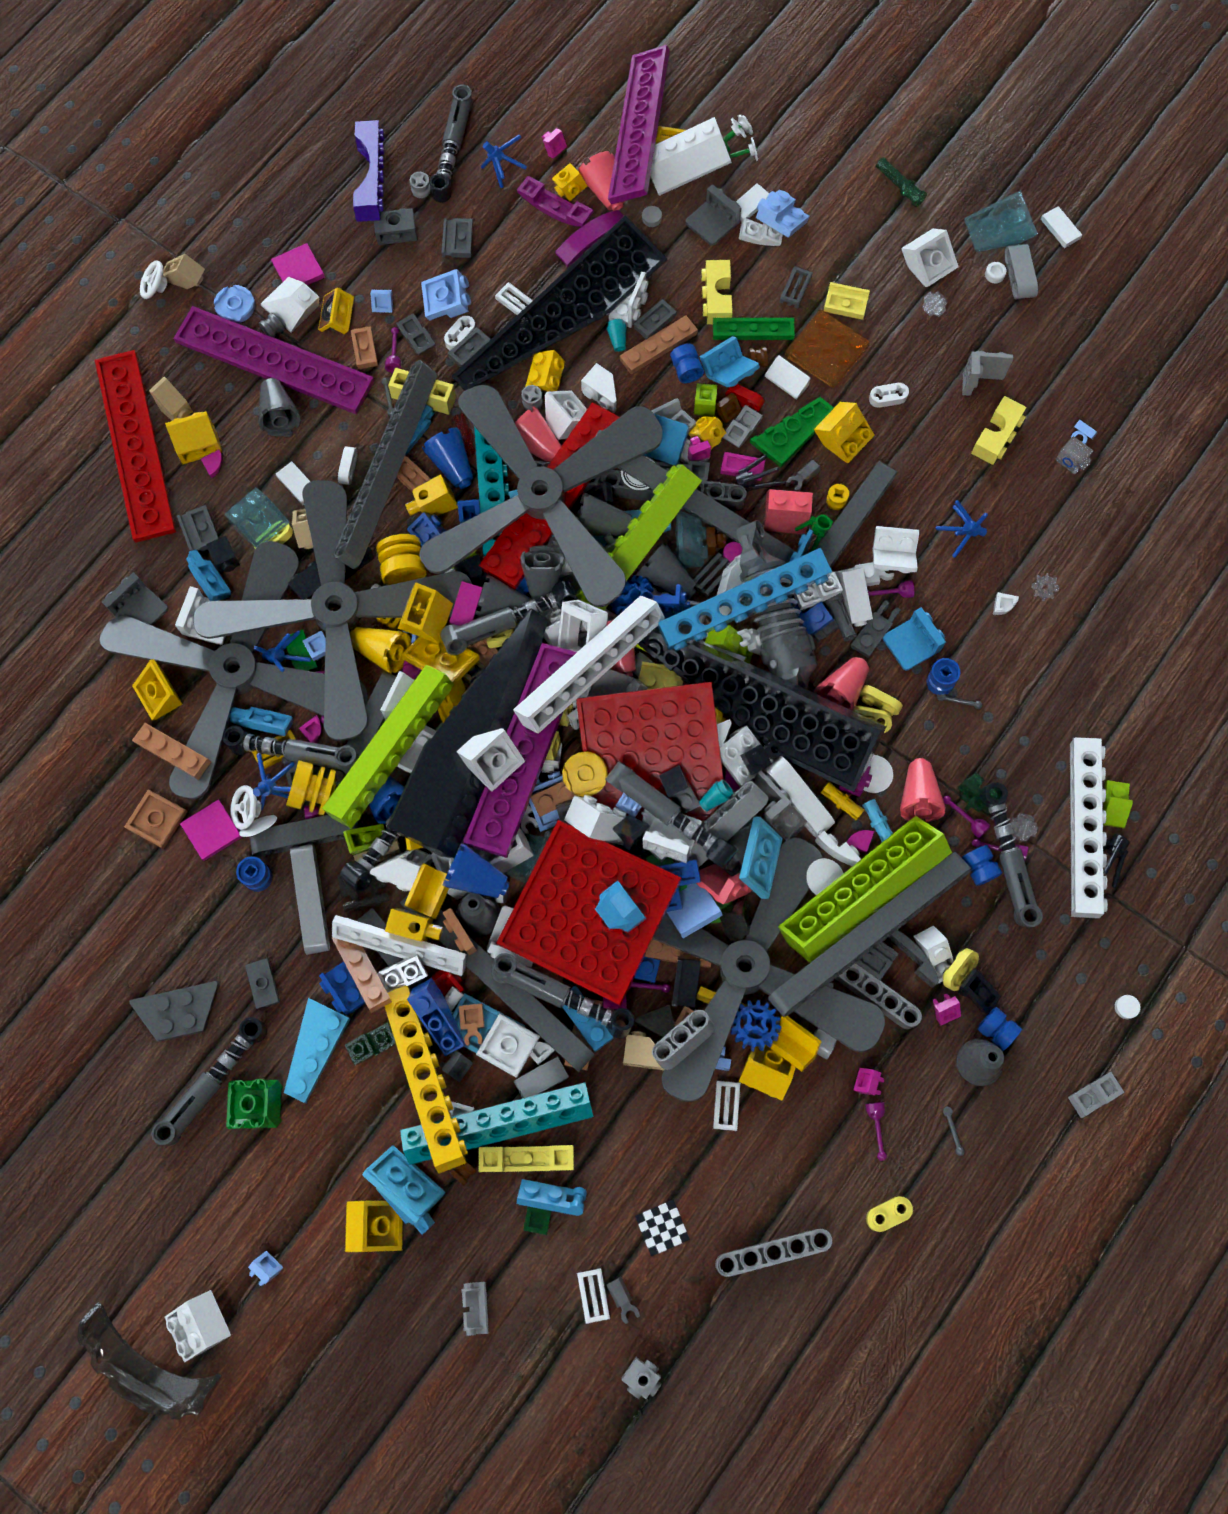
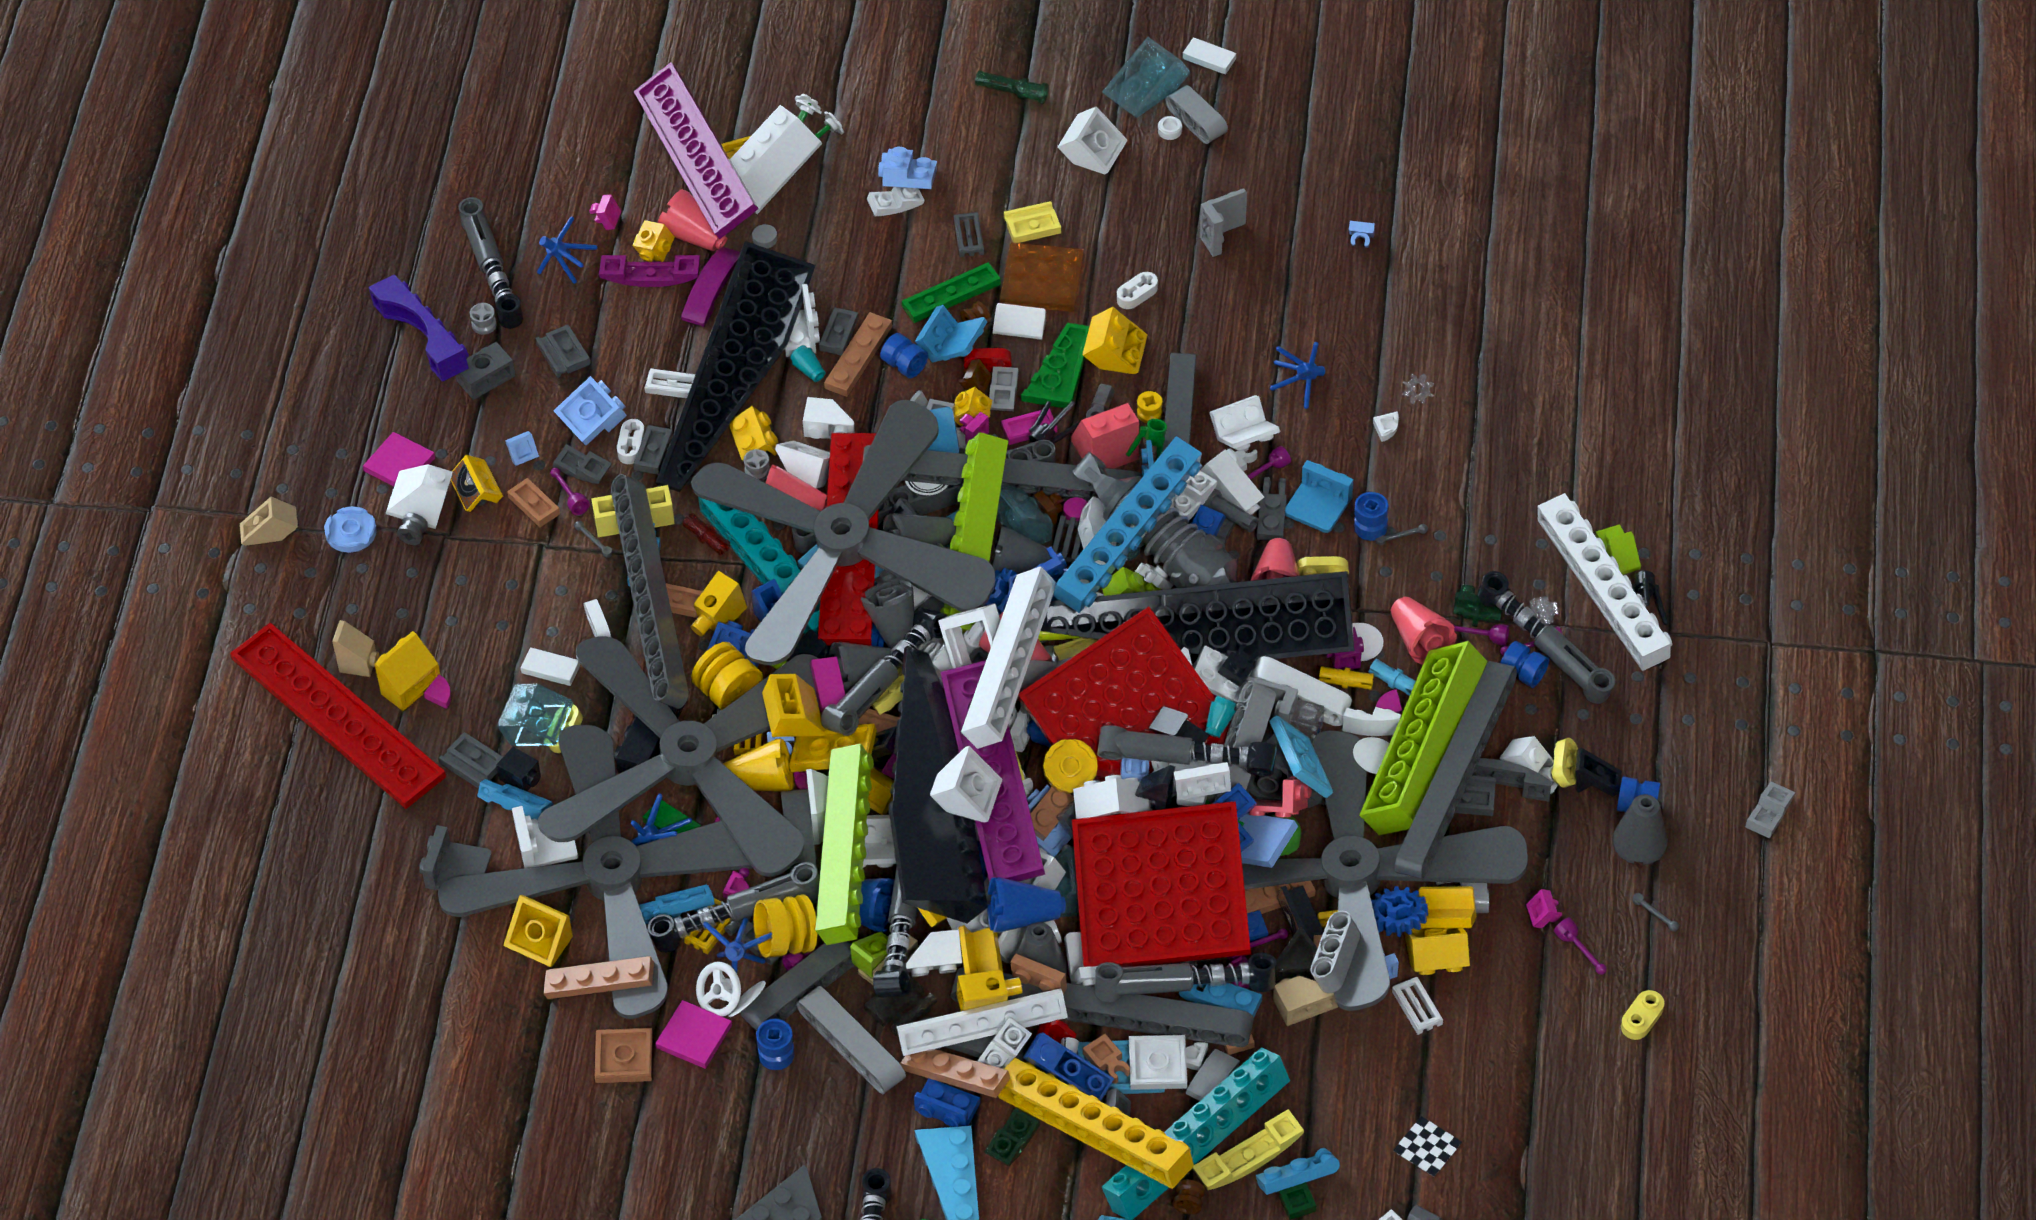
camera: 30 degrees left, 20 degrees down
(155, 281) = (246, 544): white piece -> none
(262, 983) = (854, 1145): dark grey plate -> none
(274, 359) = (437, 560): magenta plate -> none
(276, 409) = (480, 602): dark grey cone -> none
(301, 529) = (594, 701): tan slope -> none
(316, 645) = (689, 802): light blue tile -> none
(450, 457) = (705, 555): blue cone -> none
(619, 909) = (1194, 857): dark azure slope -> none
(705, 399) = (949, 381): lime slope -> none
(715, 216) = (836, 204): dark grey bracket -> none
(716, 277) = (878, 261): light yellow arch -> none
(736, 919) = (1314, 831): clear smoke slope -> none
(750, 200) = (863, 177): white tile -> none
(785, 1255) = (1547, 1113): light grey beam -> none
(878, 999) = (1529, 825): light grey beam -> none
(934, 303) = (1127, 183): clear gear -> none
(947, 1010) = (1577, 807): dark pink tile -> none
(991, 443) = (1274, 285): light yellow arch -> none
(1074, 455) = (1366, 257): clear brick -> none
(1127, 1007) = (1749, 719): white tile -> none

